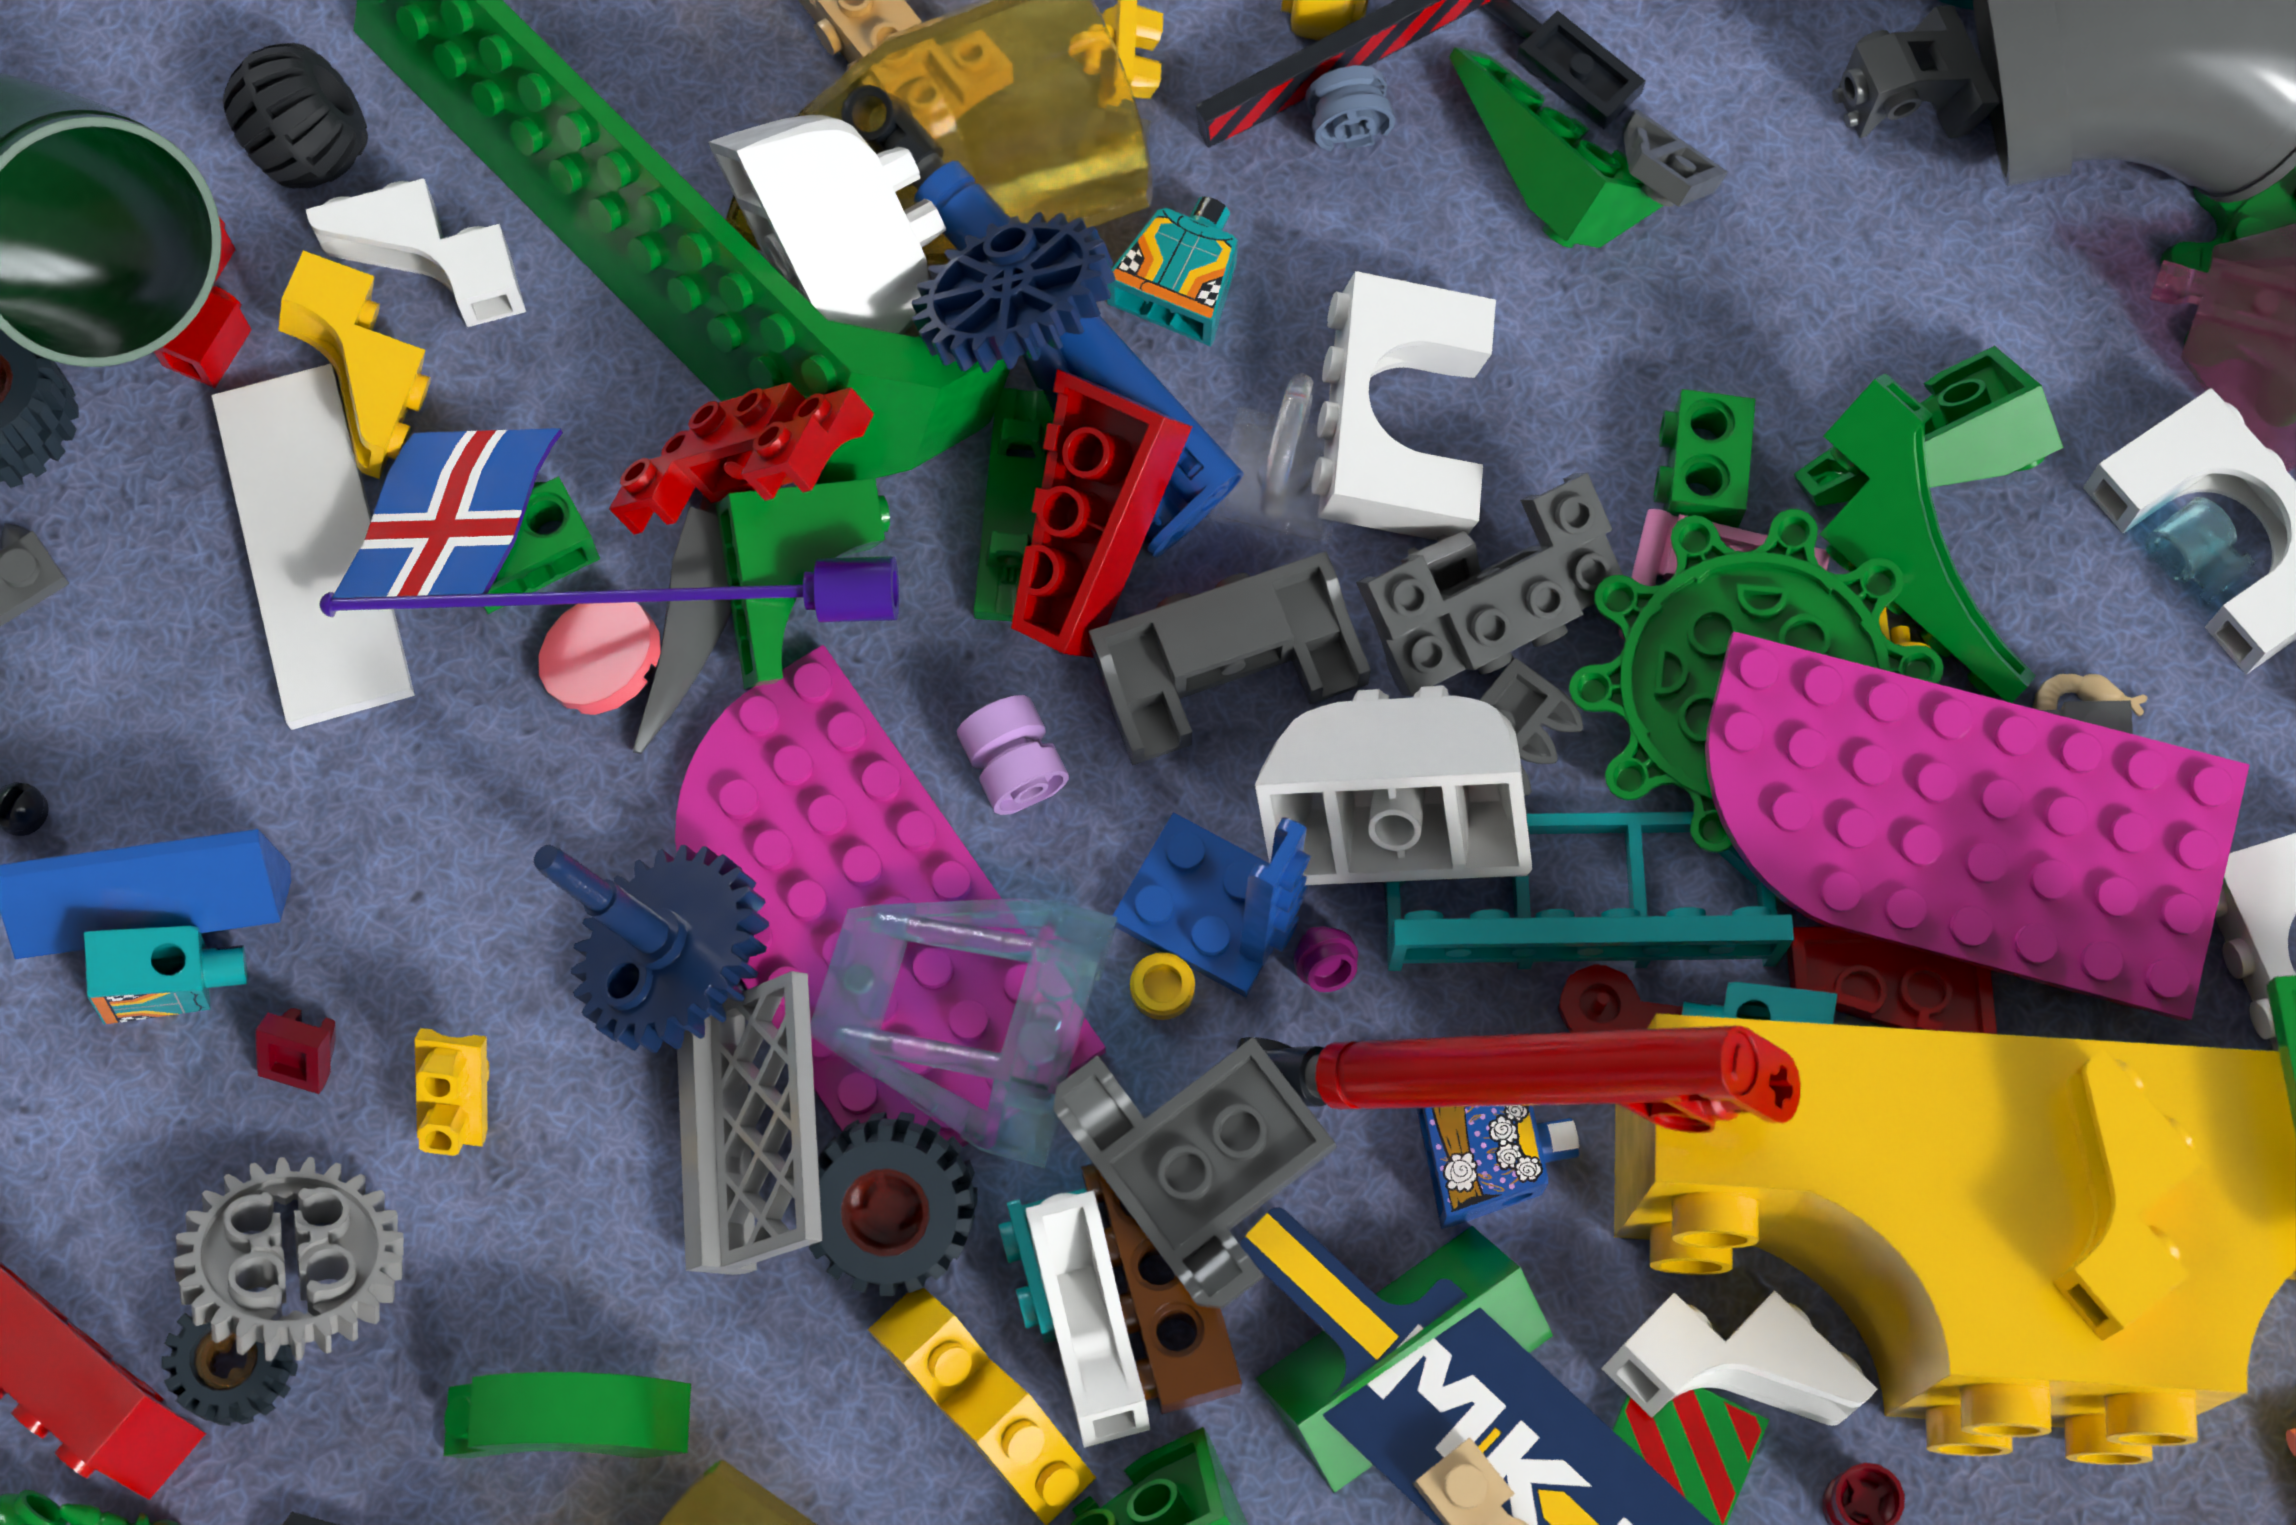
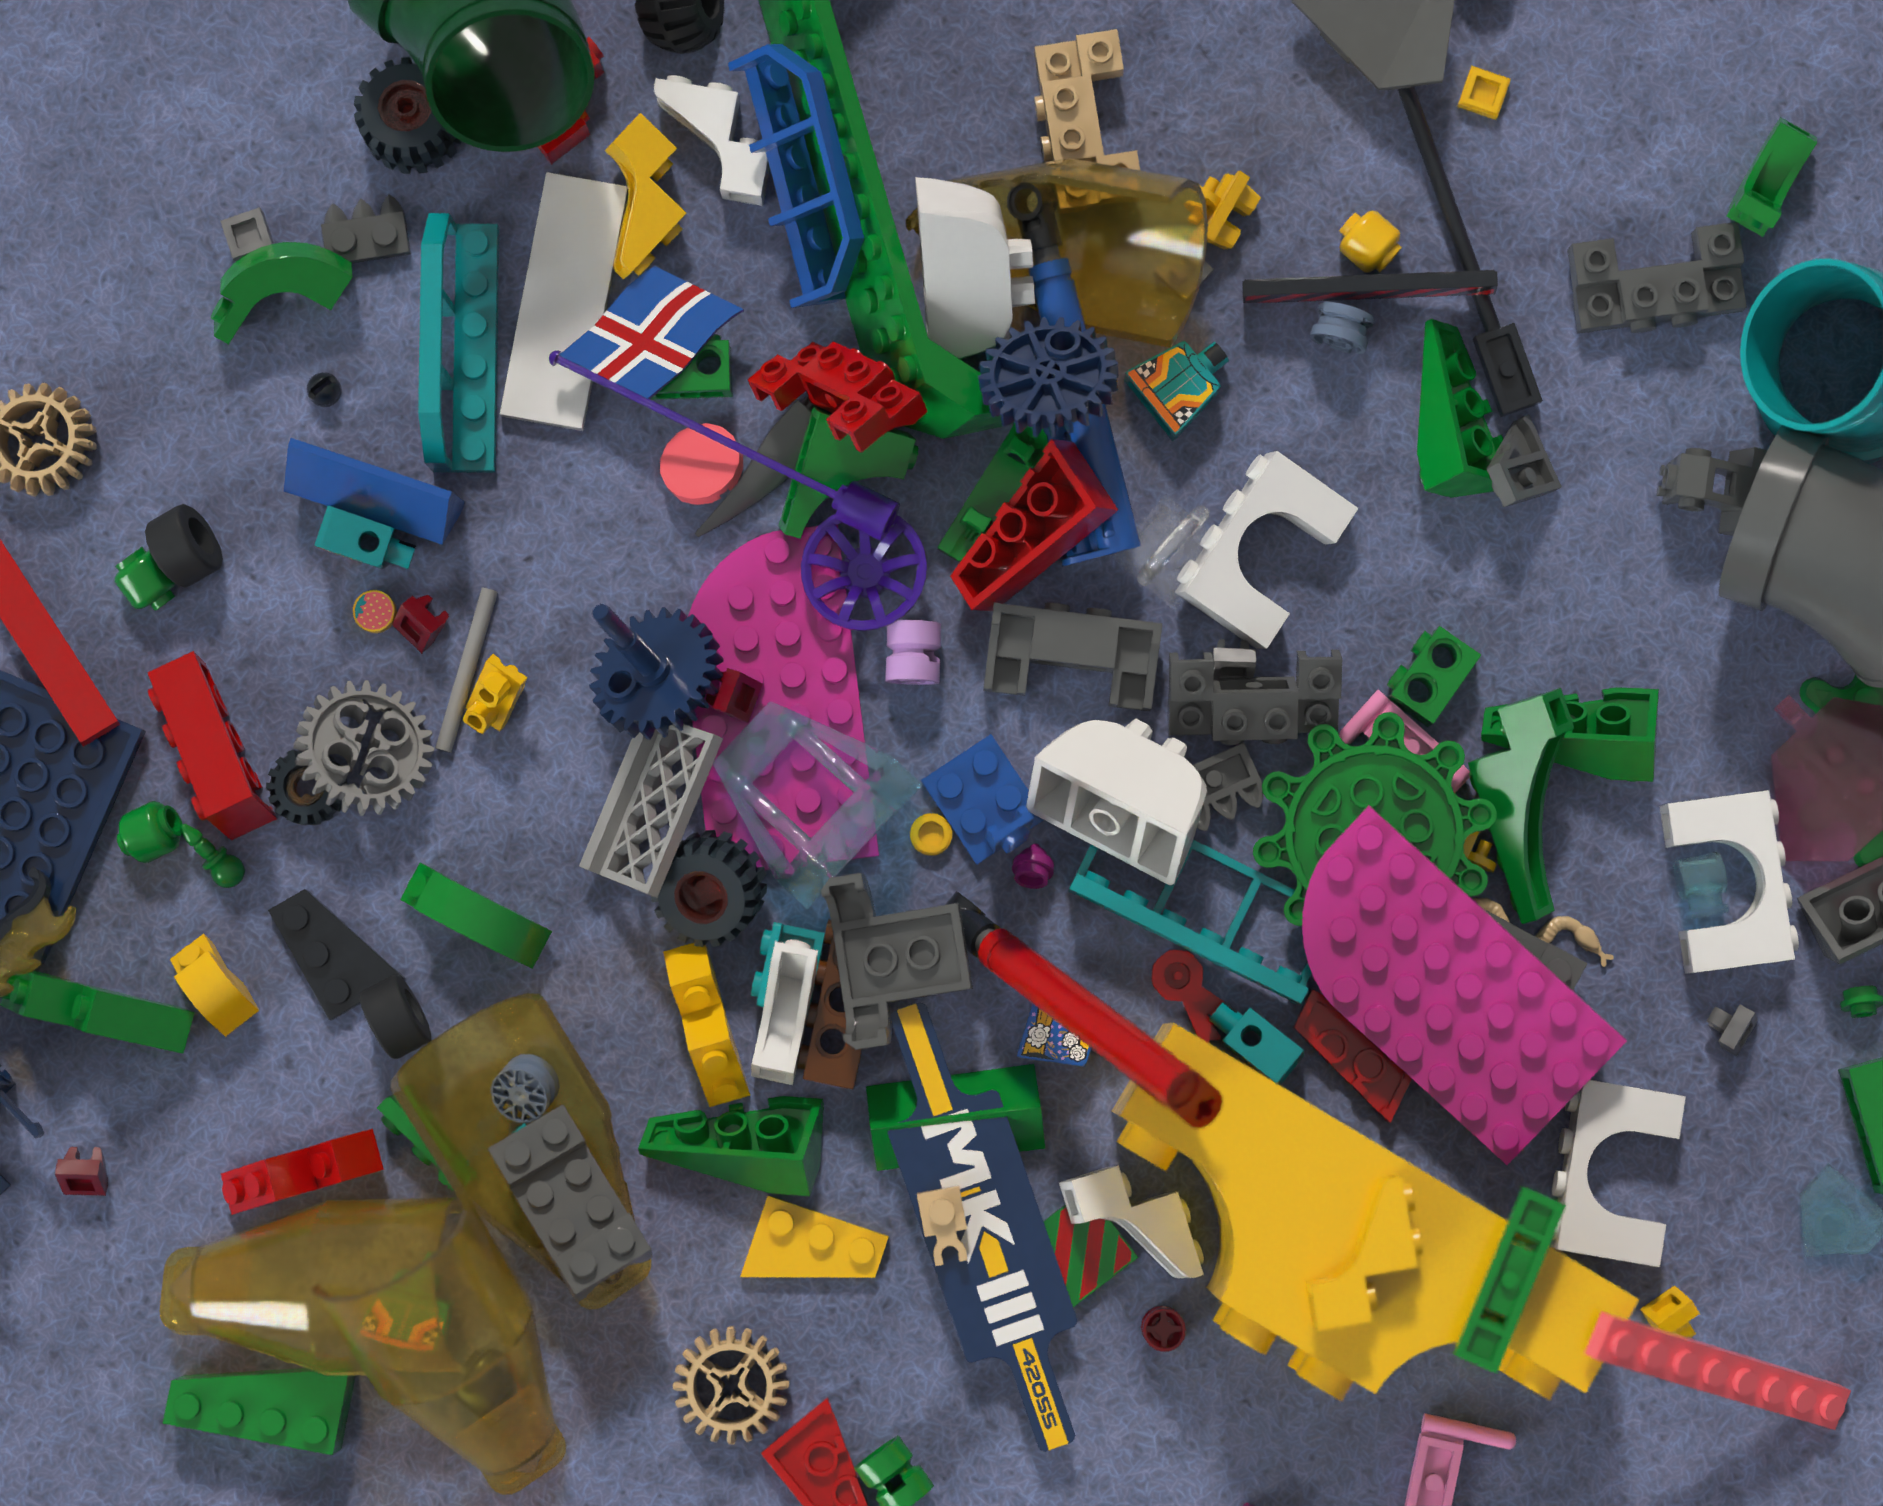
camera: 30 degrees right, 15 degrees up
(209, 651) = (474, 345): none -> teal plate
(223, 1069) = (374, 611): none -> coral tile
(395, 1087) = (466, 670): none -> light grey bar
(541, 239) = (801, 206): none -> blue plate
(796, 920) = (736, 695): none -> dark red tile
(892, 681) = (864, 573): none -> dark purple wheel

